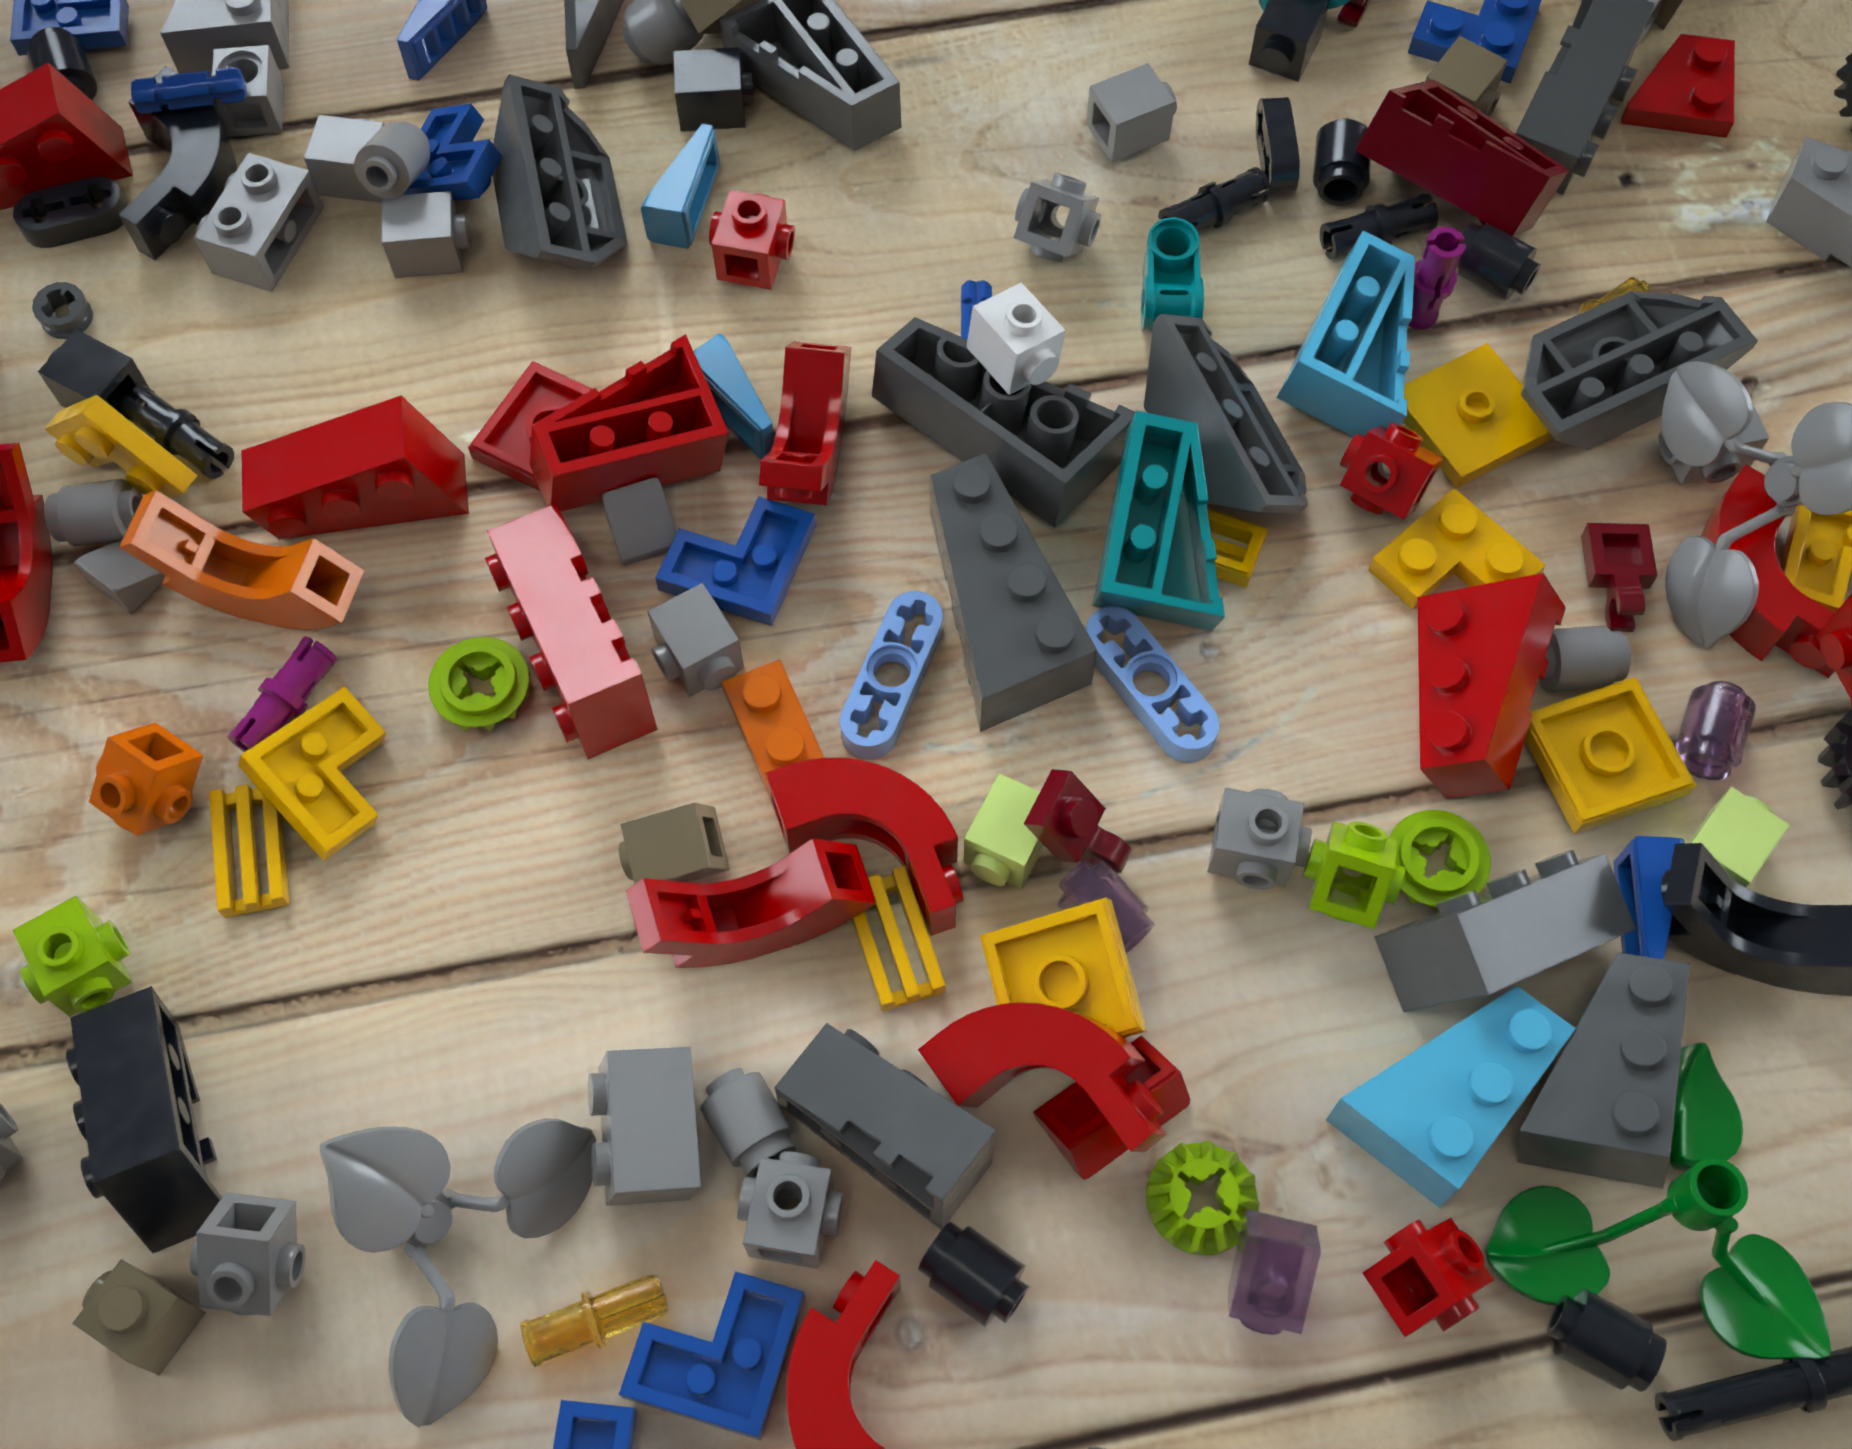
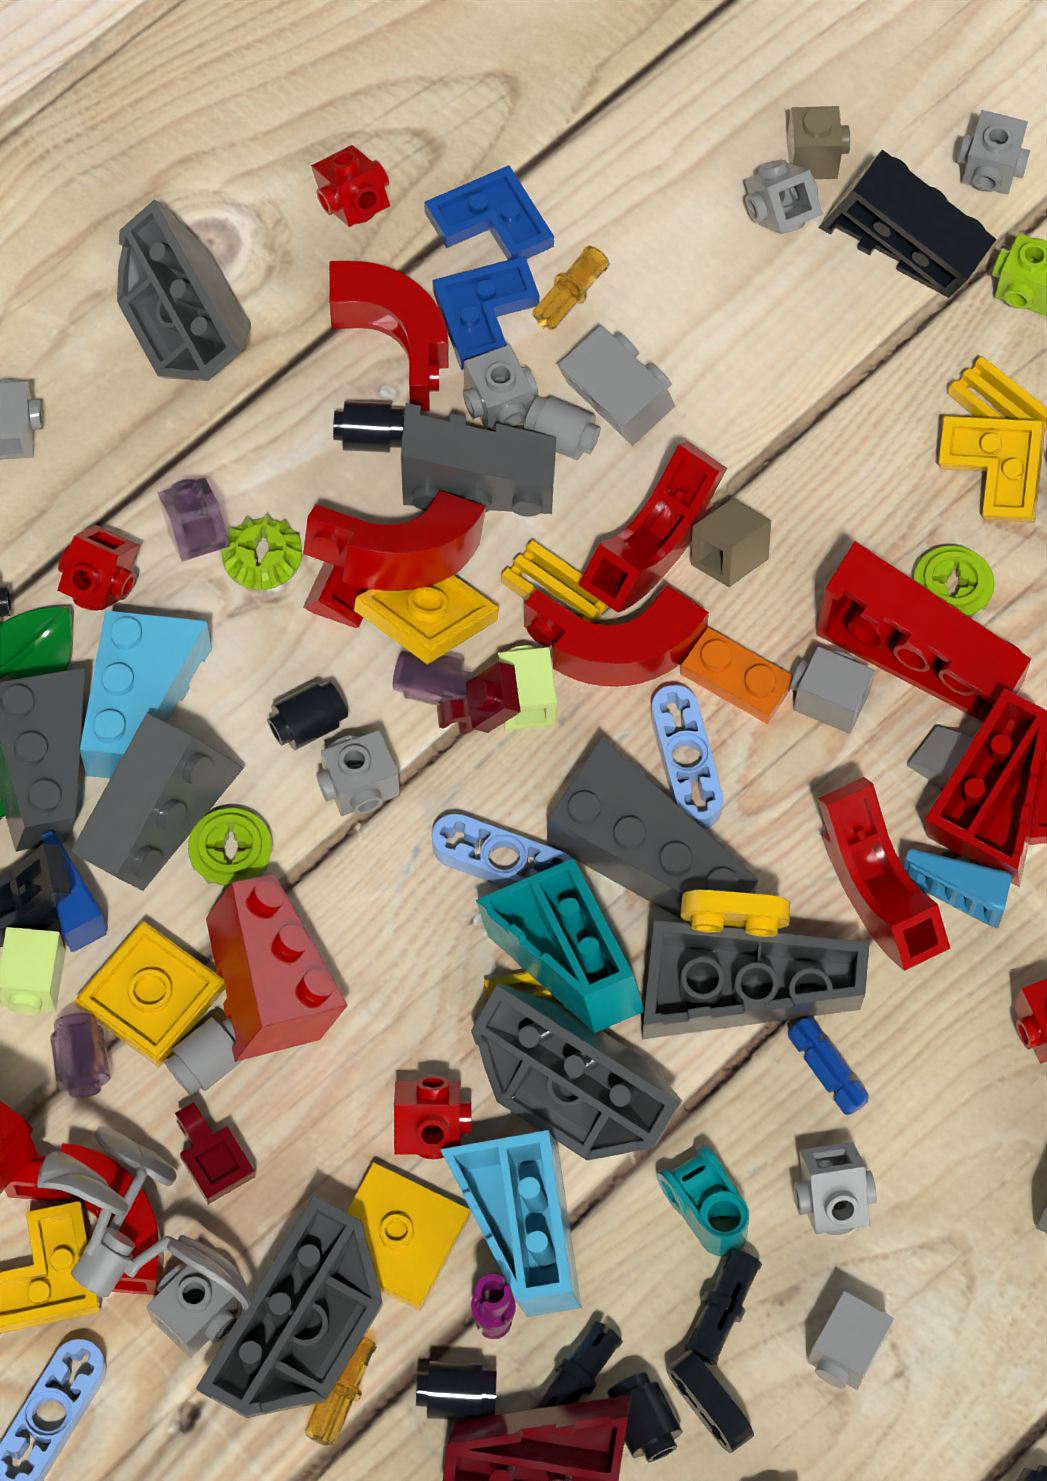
camera: 145 degrees right, 0 degrees up
(392, 1192) = (706, 210): light grey plant -> none
(748, 576) = (851, 751): blue plate -> none
(986, 430) = (713, 910): none -> yellow plate
(1015, 338) = (767, 999): white brick -> none
(1271, 947) = (307, 715): none -> black brick
(1354, 873) = (280, 785): lime brick -> none
(1450, 541) = (342, 1114): yellow plate -> none

